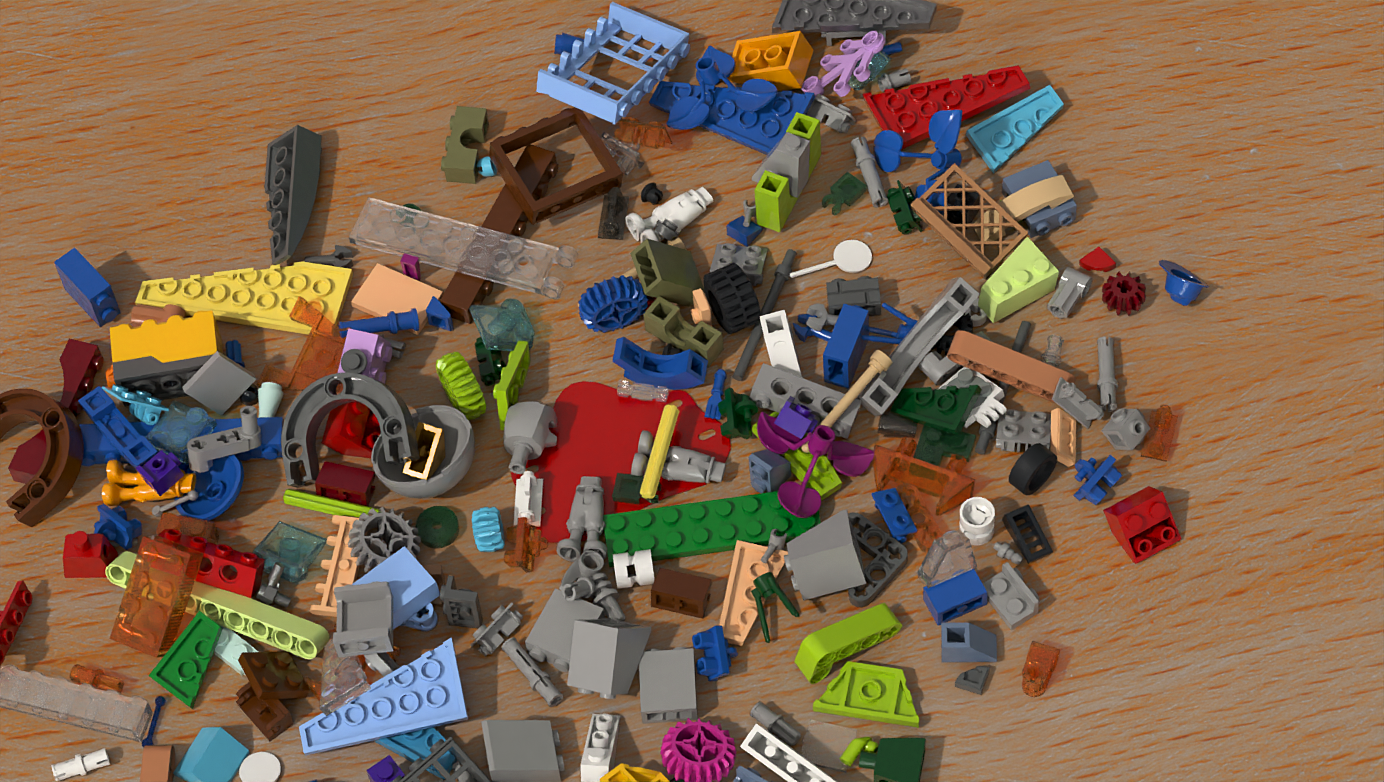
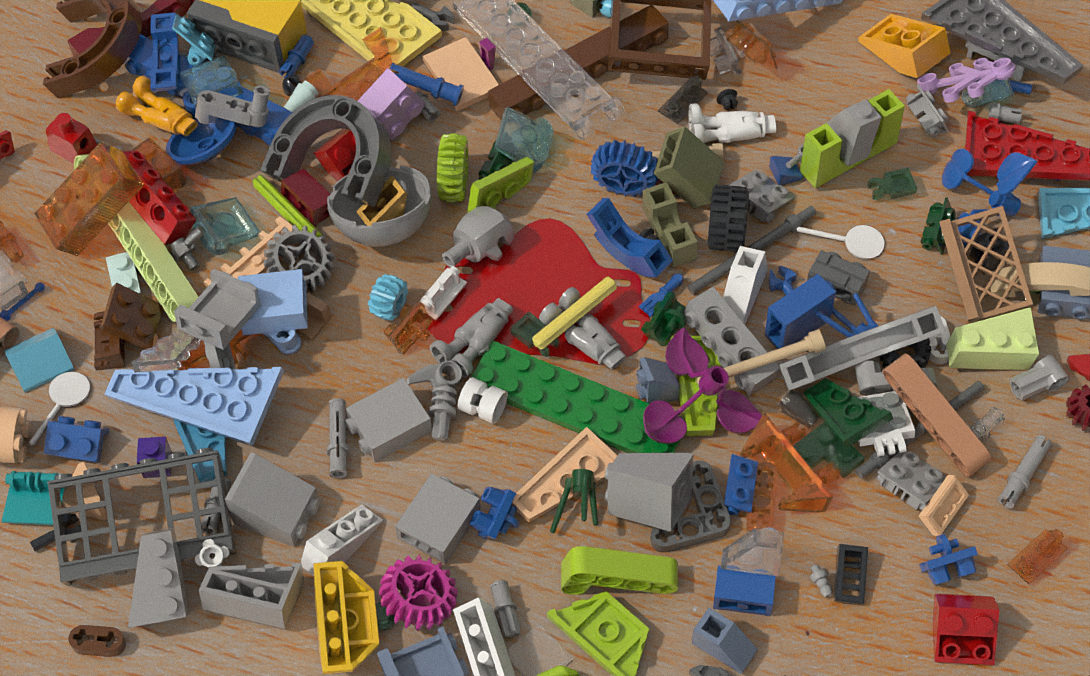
camera: 30 degrees right, 0 degrees up
(115, 527) = (112, 129): blue hips -> none
(157, 510) = (182, 137): light grey hinge -> none
(161, 472) = (167, 104): dark purple brick -> none
(188, 659) = (81, 266): green wing -> none
(219, 383) = (267, 60): light grey tile -> none
(354, 361) = (373, 97): dark grey plate -> none
(437, 537) = (354, 263): clear green piece -> none
(438, 315) = (480, 102): blue slope -> none
(460, 605) = (317, 345): dark grey bracket -> none
(505, 621) = (326, 385): light grey hinge -> none
(582, 588) = (426, 390): light grey pin -> none
(605, 655) = (401, 459): light grey slope -> none
(642, 391) = (602, 256): clear axle -> none
(667, 229) = (716, 132): dark grey plate -> none
(680, 593) = (508, 444): reddish brown hinge -> none
(701, 308) = (695, 214): light nougat plate -> none
(712, 68) = (852, 25): blue plant -> none
(754, 129) = (843, 67): blue wing -> none
(775, 543) = (615, 450): light grey hand -> none
(796, 418) = (707, 349): dark purple brick -> none
(823, 317) = (800, 272): light grey bar -> none
(866, 163) = (931, 169): light grey pin -> none
(977, 520) = (810, 534): white wheel -> none
(1011, 596) = (795, 622): light grey bracket -> none
(1032, 469) = (893, 517): black tyre -> none
(1076, 403) = (975, 481): light grey hinge -> none
(1126, 429) = (1008, 531): light grey brick -> none

